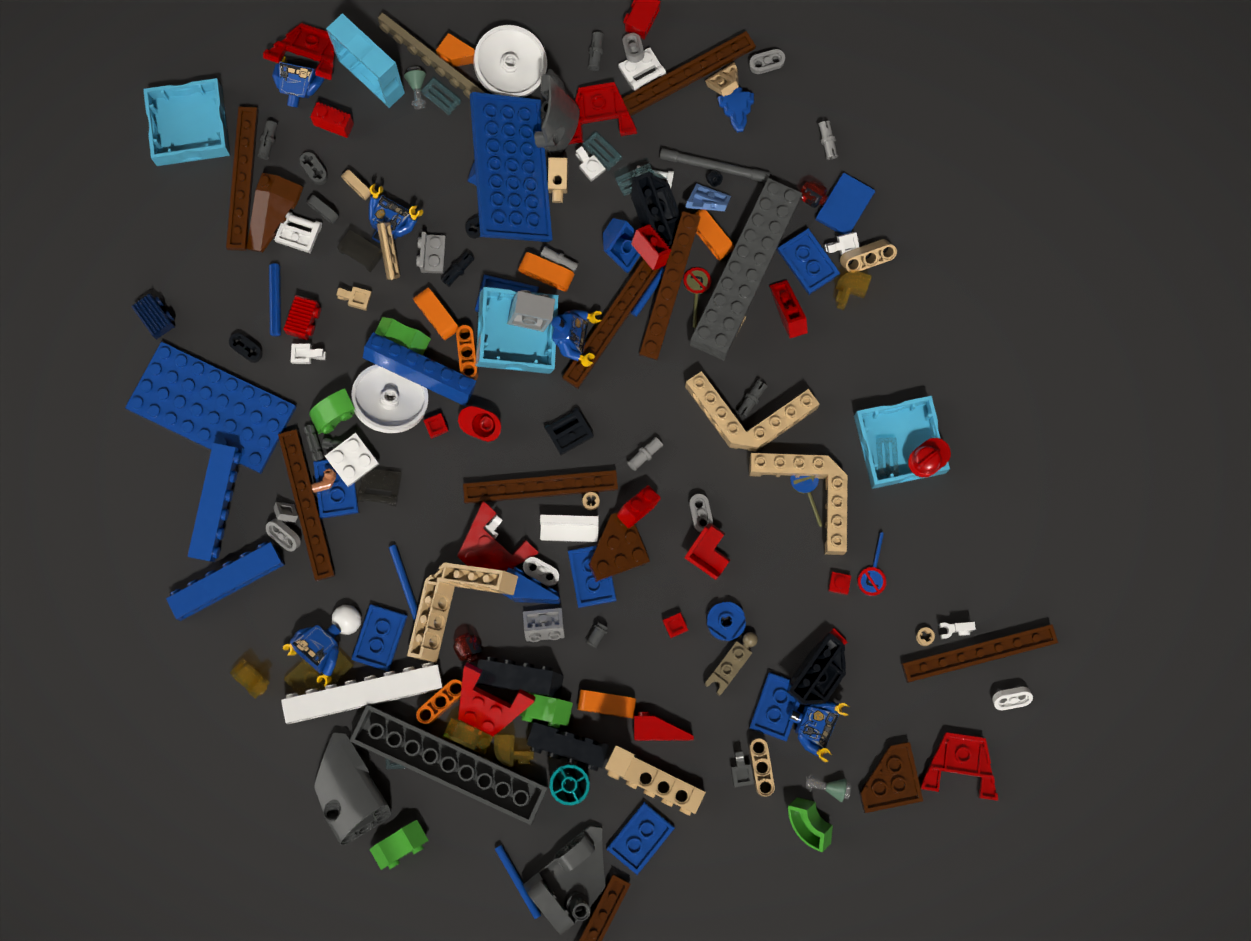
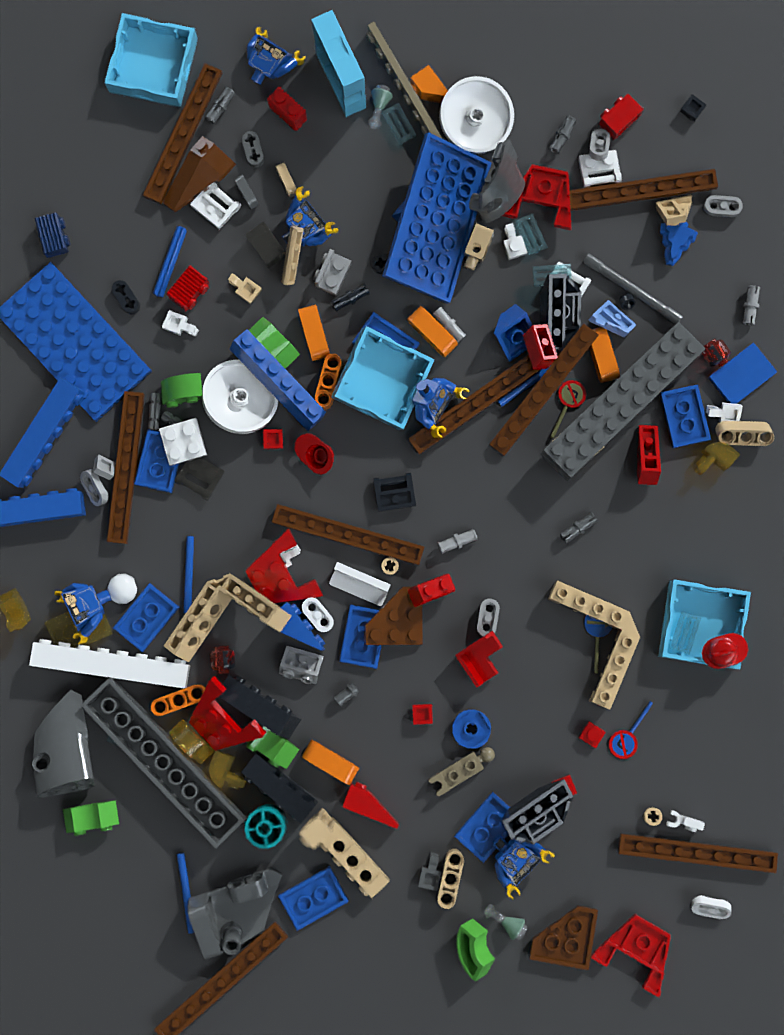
camera: 25 degrees right, 5 degrees up
(306, 42) = (293, 25): red wing -> none
(326, 483) = (152, 454): nougat arm -> none
(531, 311) = (403, 365): light grey slope -> none
(730, 427) = (547, 547): tan brick -> none

